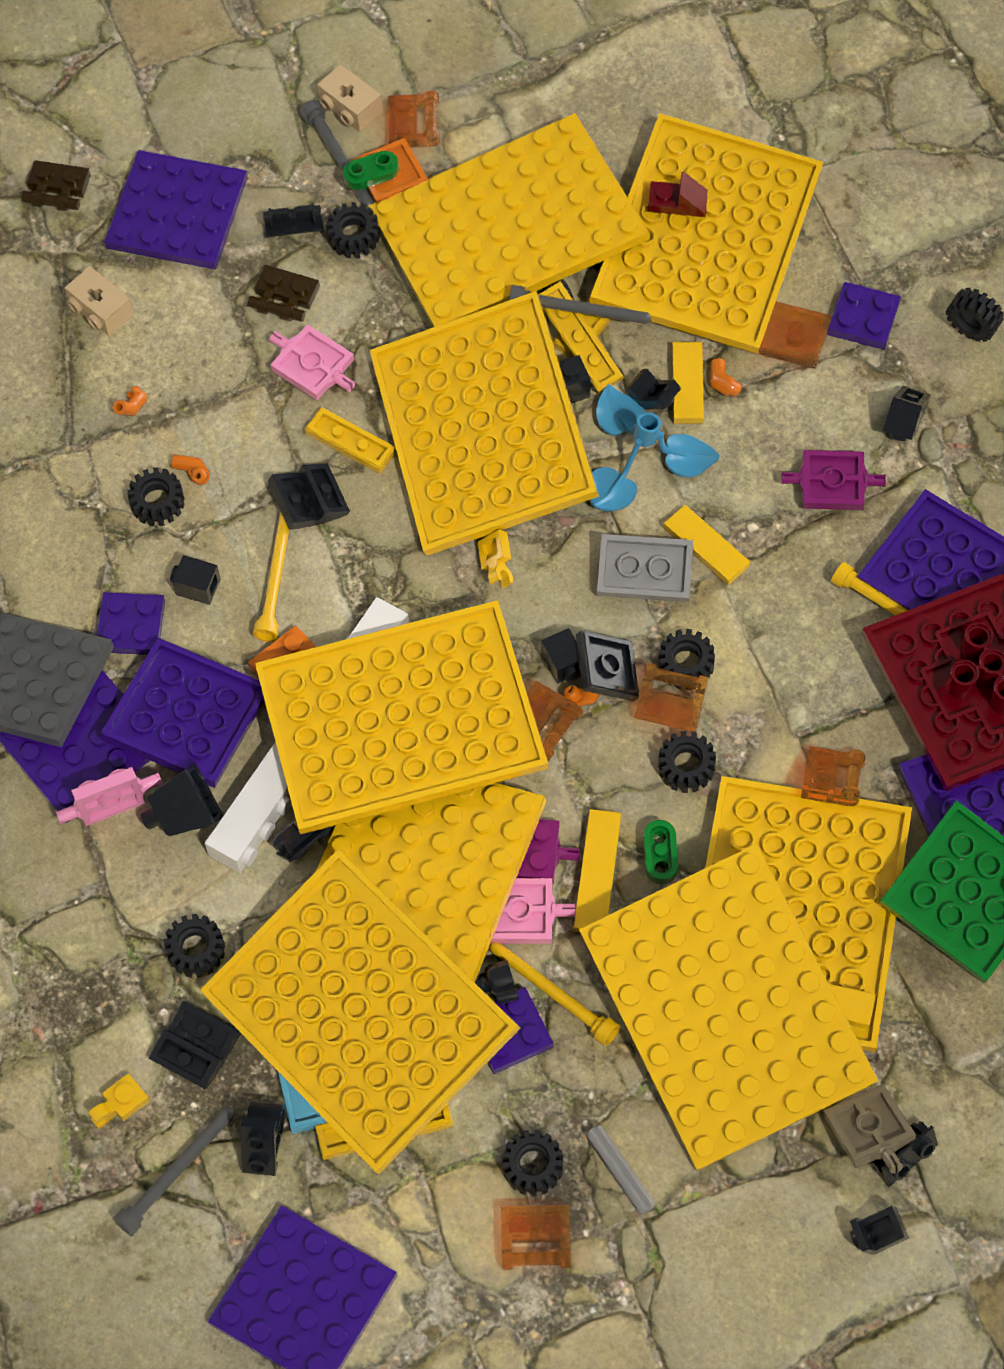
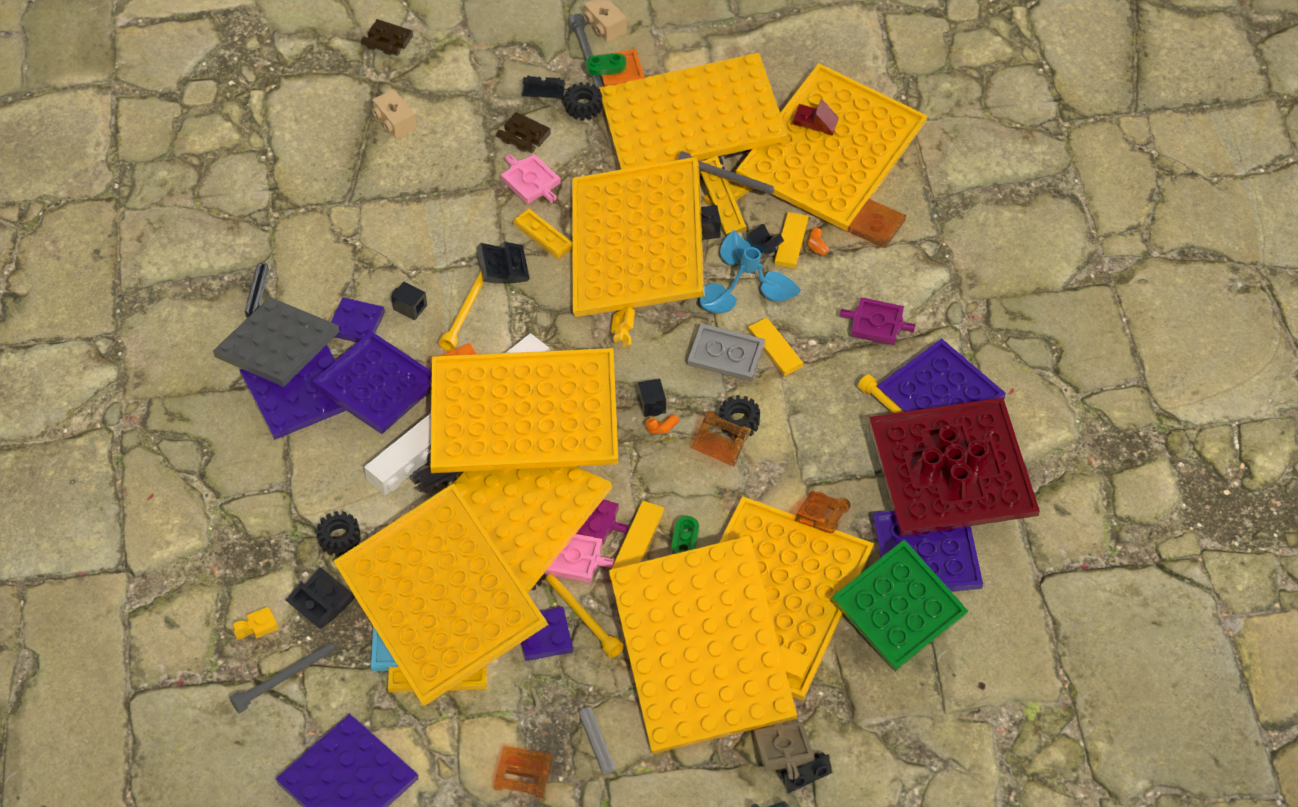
camera: 10 degrees right, 10 degrees down
(108, 796) = (306, 424): bright pink plate -> none
(137, 399) = (399, 183): orange arm -> none
(152, 482) = (398, 253): black tyre -> none
(176, 209) = (465, 67): dark purple plate -> none
(182, 804) = (356, 437): black torso -> none
(194, 466) = (430, 230): orange arm -> none
(261, 1137) = (347, 665): black pin -> none
(404, 118) = (640, 37): clear orange plate -> none
(498, 982) = (545, 598): black piece -> none
(527, 1143) = (531, 710): black tyre -> none
(543, 705) = (627, 427): clear orange plate -> none
(607, 665) = (680, 408): black tile -> none
(692, 745) = (720, 472): black tyre -> none
(864, 315) = (930, 220): dark purple plate -> none
(906, 413) = (941, 287): black slope -> none
(975, 314) = (1008, 231): black tyre -> none

